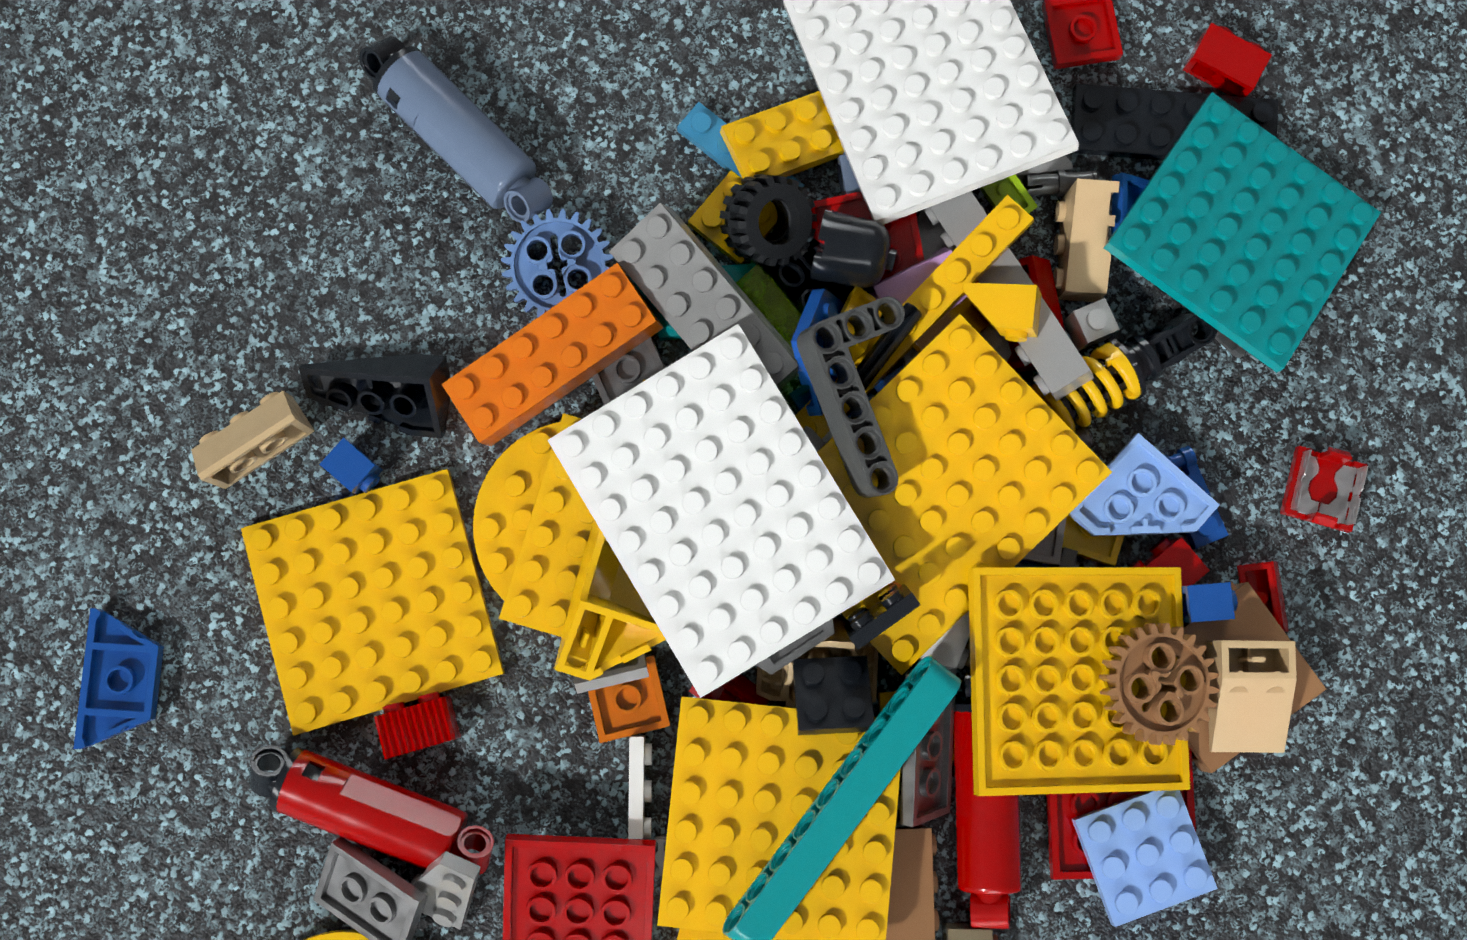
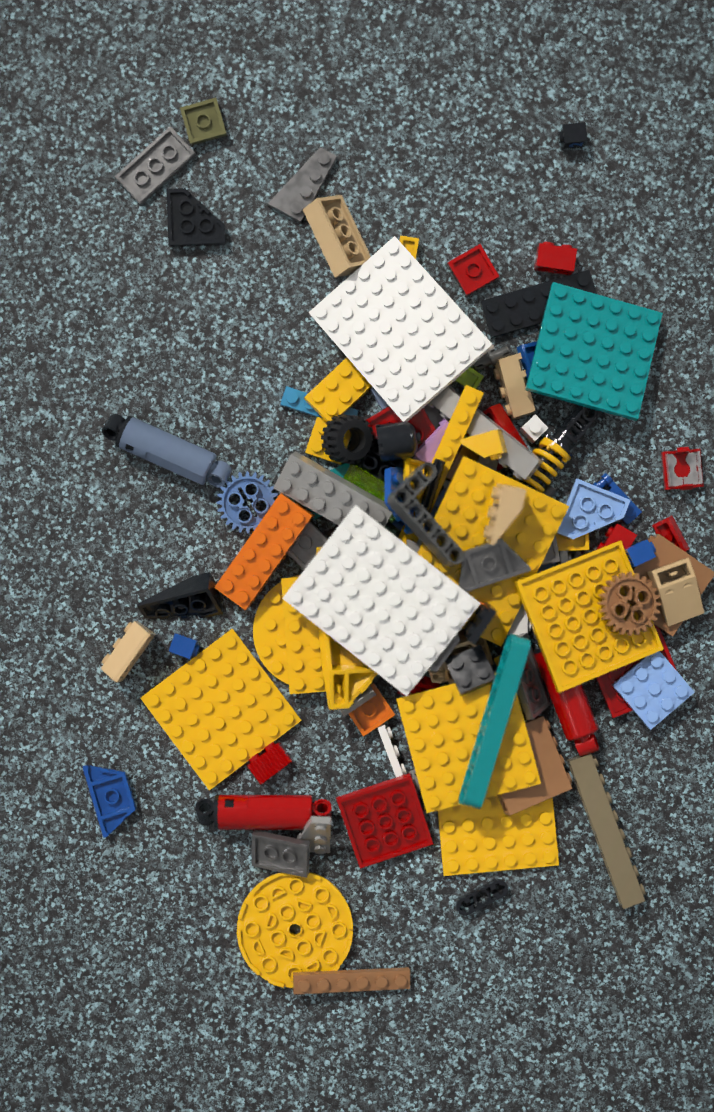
camera: 15 degrees left, 5 degrees up
(936, 520) = (489, 564): none -> flat silver wing
(1008, 420) = (506, 506): none -> tan slope

